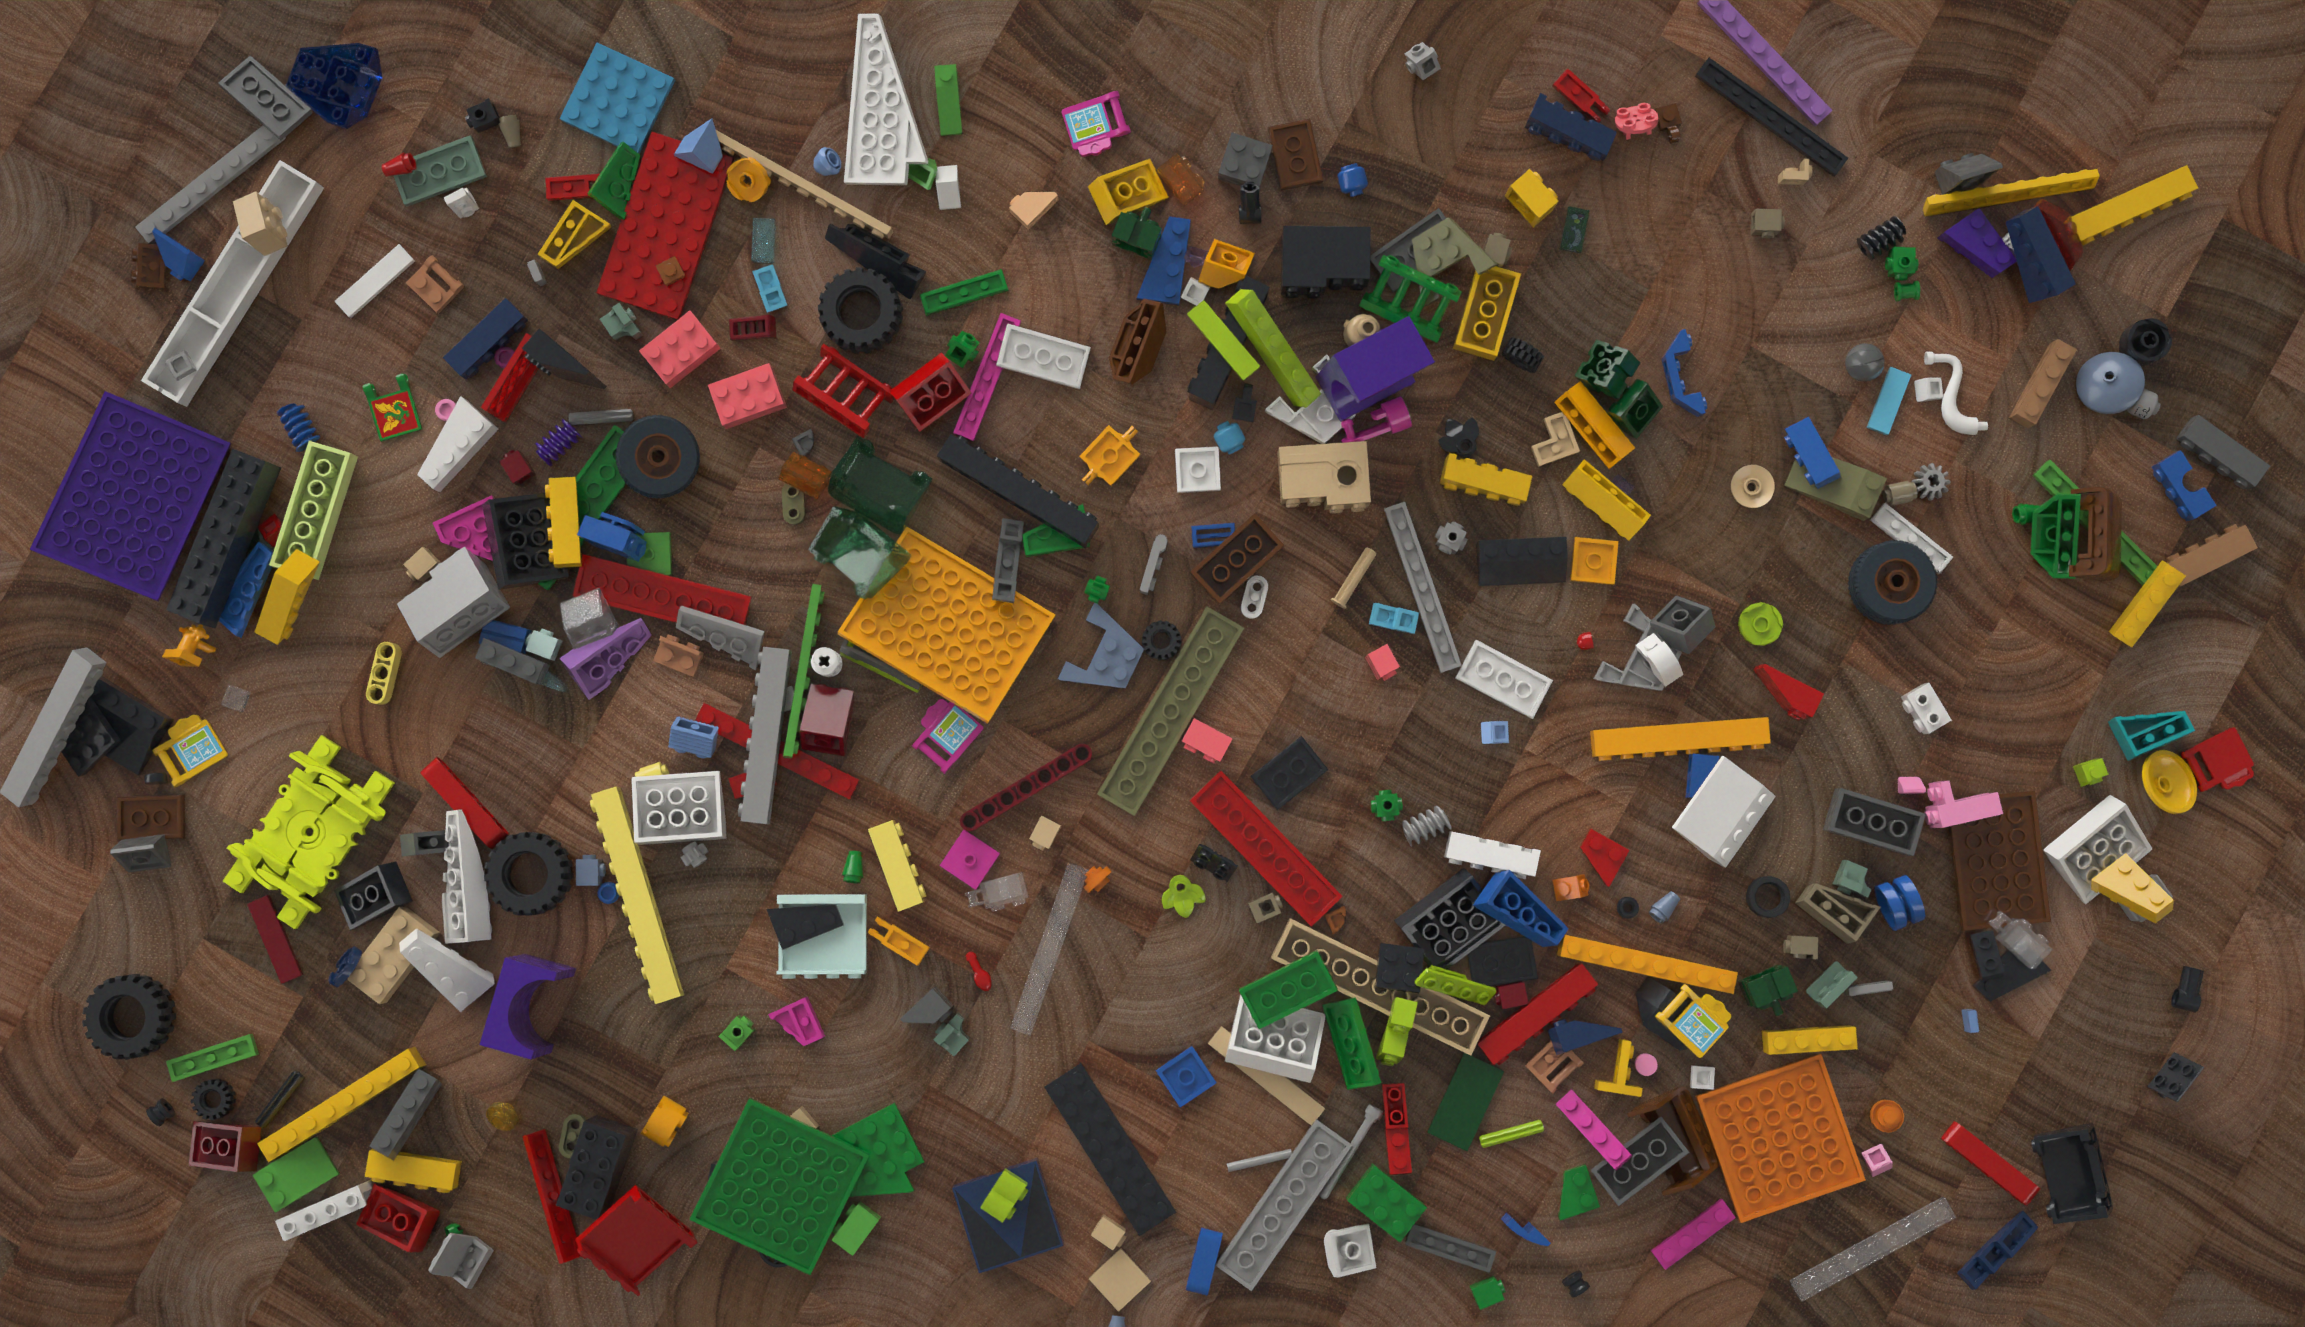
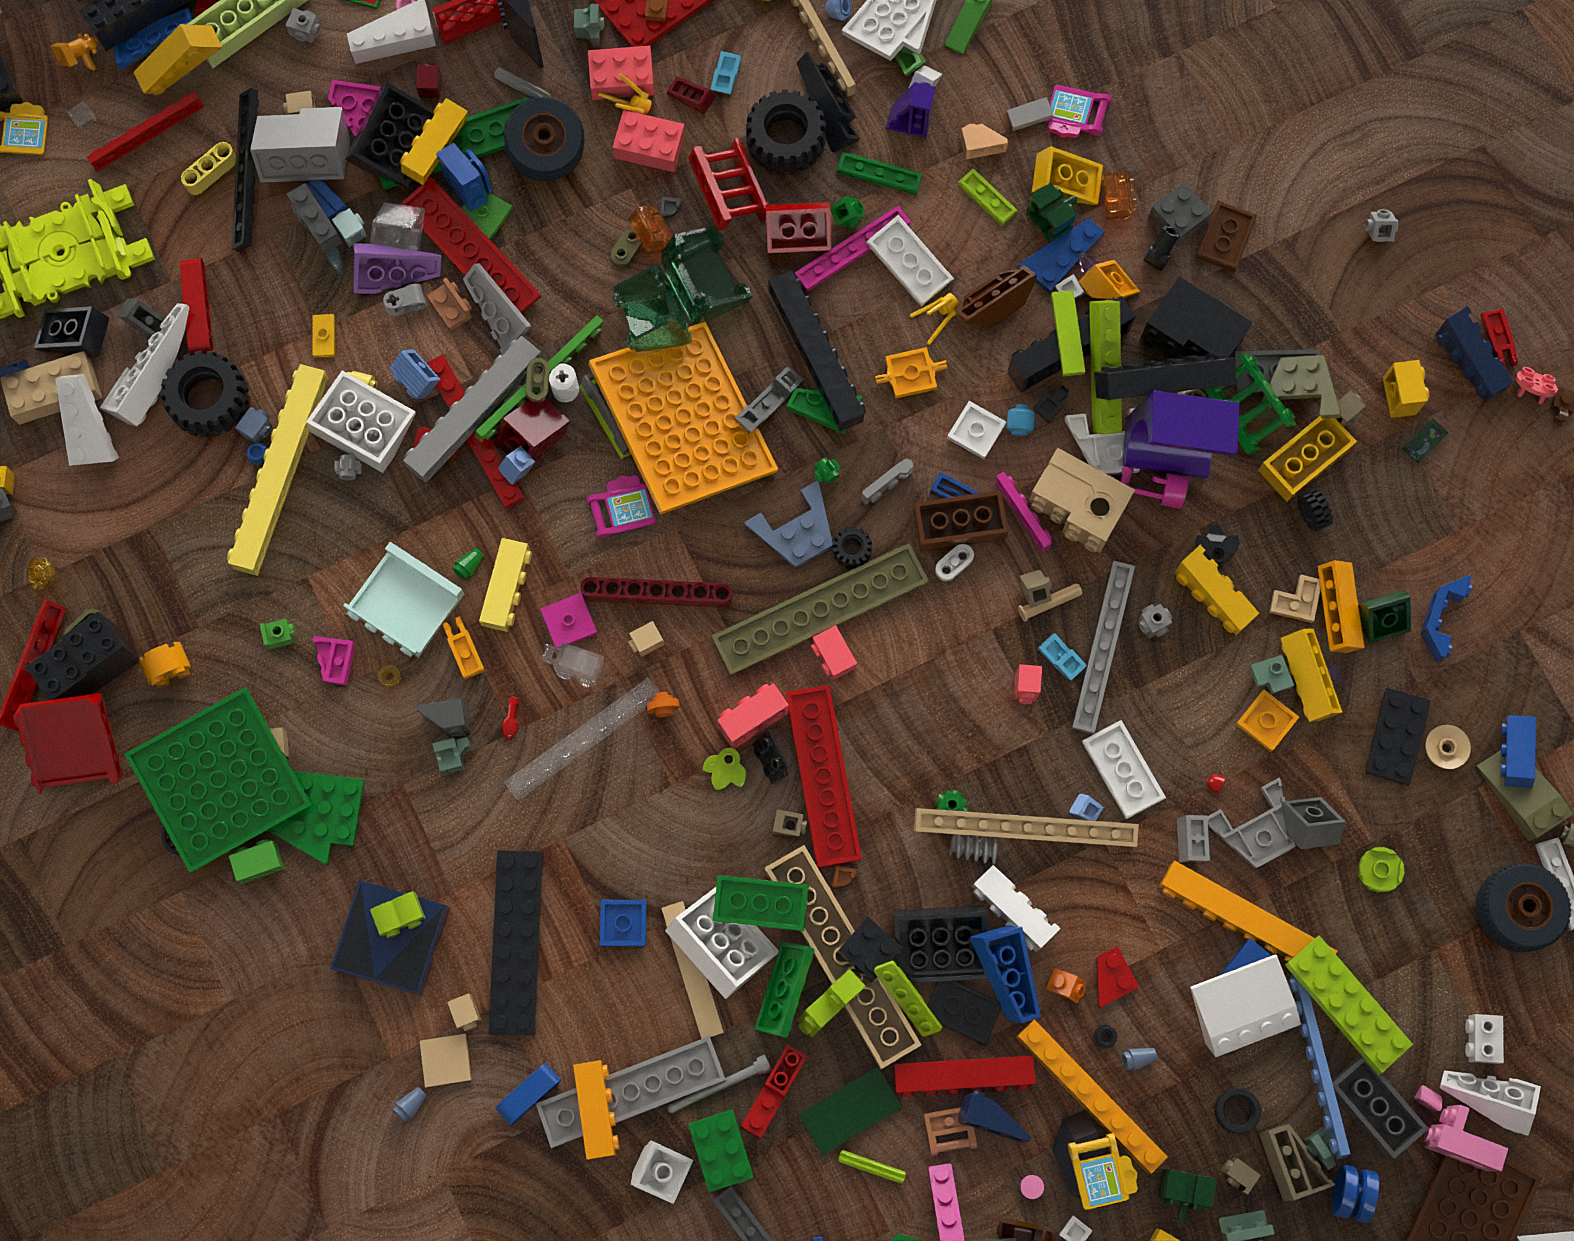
camera: 30 degrees right, 10 degrees down
(300, 684) = (145, 131): none -> red plate
(371, 490) = (303, 25): none -> light grey brick
(415, 653) = (244, 176): none -> black plate
(508, 1020) = (113, 481): dark purple piece -> none
(557, 442) = (473, 81): dark purple piece -> none
(590, 753) = (324, 335): none -> yellow plate
(641, 673) = (407, 300): none -> light grey piece
(716, 367) = (638, 104): none -> yellow plant
(763, 240) = (746, 35): clear light blue plate -> none
(803, 923) = (396, 581): black wing -> none
(804, 677) = (537, 381): none -> olive plate
(836, 759) = (516, 465): none -> medium blue brick
(847, 1004) = (389, 669): none -> clear yellow plate
(956, 220) = (913, 110): none -> dark purple wedge
(1057, 152) = (1030, 114): none -> light grey tile
(1070, 253) = (987, 197): none -> lime tile
(1099, 376) = (945, 305): none -> yellow plant
(1176, 839) = (752, 715): none -> coral brick
(1259, 1160) = (636, 1039): light grey bar -> none
(1267, 1240) = (595, 1110): none -> light orange brick
(1274, 511) = (1019, 505): none -> dark pink plate
(1289, 773) = (886, 727): black tile -> none
(1331, 330) = (1165, 376): none -> black brick
(1336, 575) = (1036, 588): none -> dark tan brick
(1352, 179) = (1261, 283): blue head -> none
(1458, 783) = (1026, 827): none -> tan plate
(1511, 995) = (951, 1043): dark red brick -> none
(1522, 561) = (1204, 679): black slope -> none
(1575, 520) = (1272, 674): none -> sand green brick
(1596, 701) = (1193, 839): none -> light grey hinge
(1607, 369) = (1382, 566): dark green brick -> none
(1621, 1073) = (1005, 1179): yellow bracket -> none
(1661, 659) = (1273, 838): white brick -> none
(1706, 503) = (1397, 736): none -> black plate
(1792, 695) = (1370, 942): red slope -> none
(1803, 756) = (1349, 1005): none -> lime plate
(1815, 825) = (1320, 1072): none -> medium blue plate
(1965, 751) = (1504, 1102): none -> white wedge

